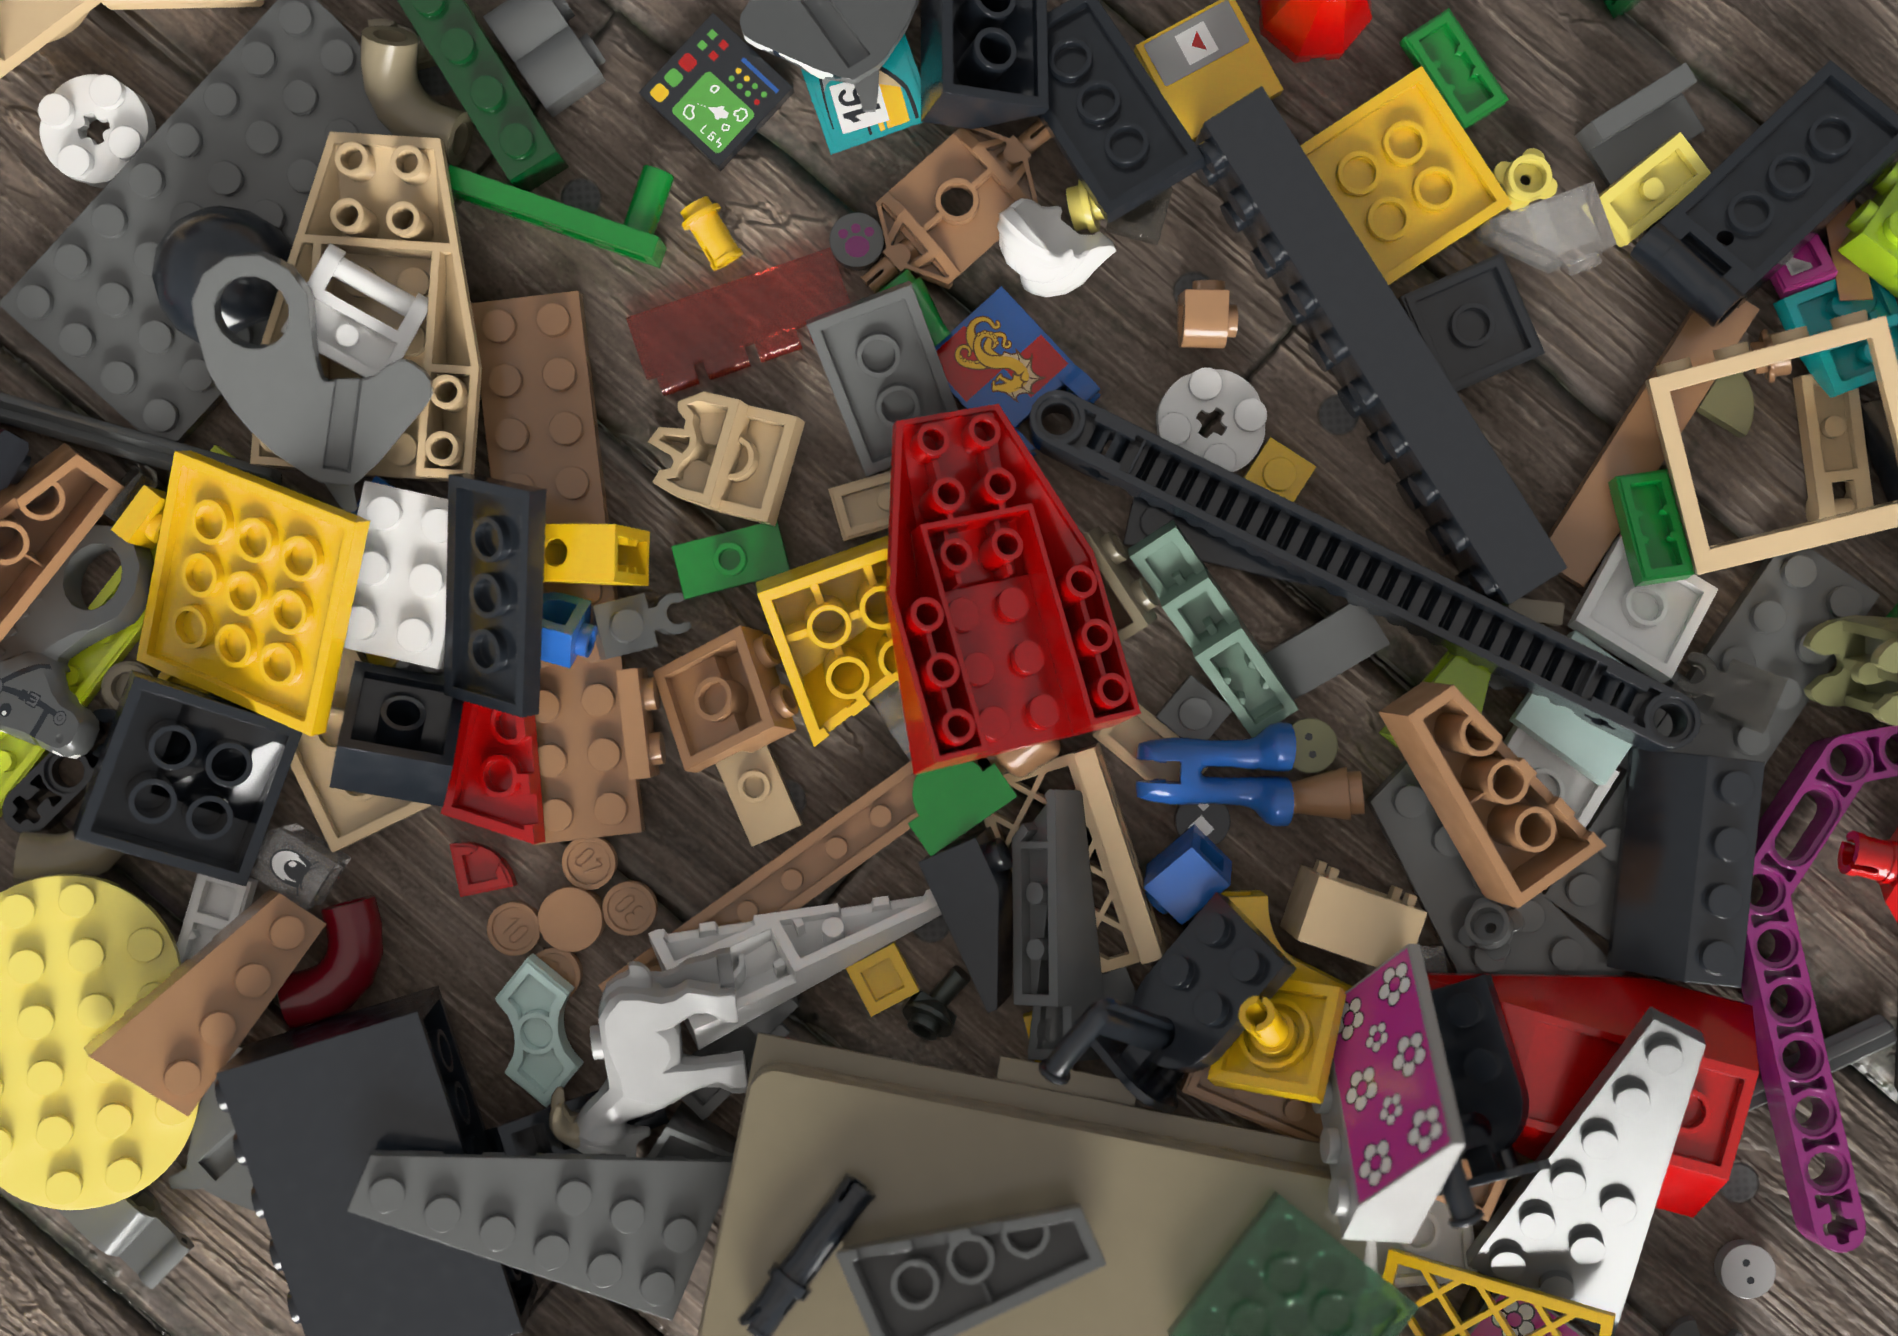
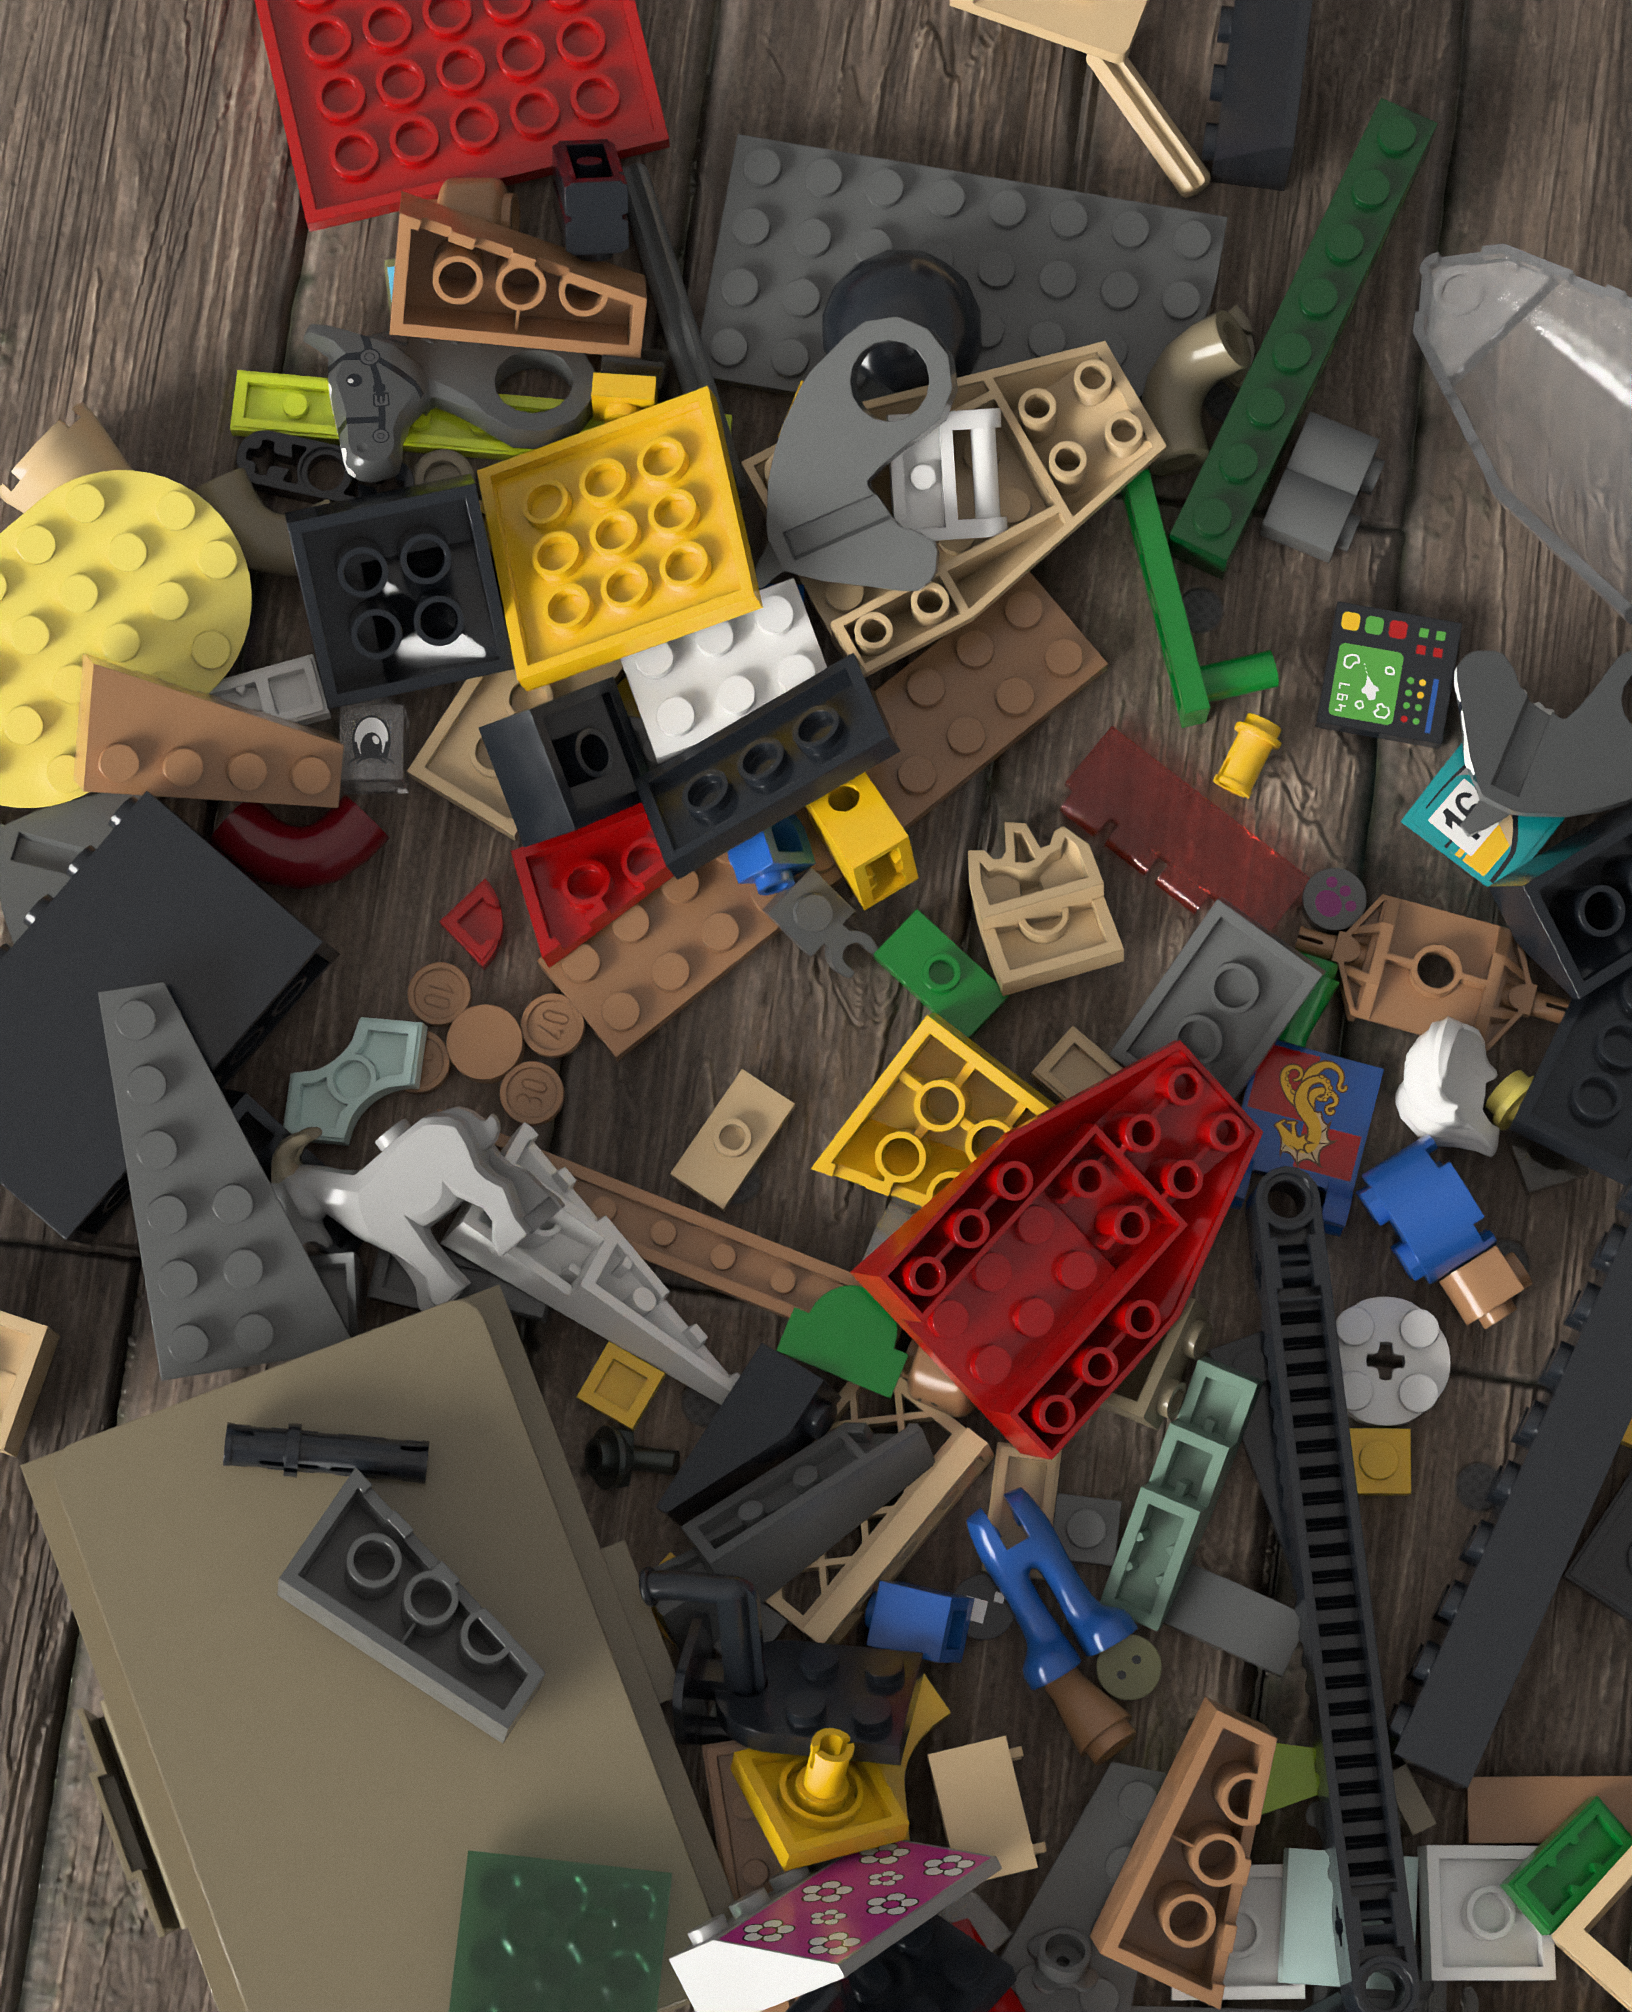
camera: 65 degrees right, 10 degrees down
(70, 112) = (958, 86): white plate -> none
(642, 745) = (743, 971): medium nougat plate -> none
(726, 698) = (803, 1054): medium nougat plate -> none
(1128, 321) = (1426, 1211): none -> blue brick

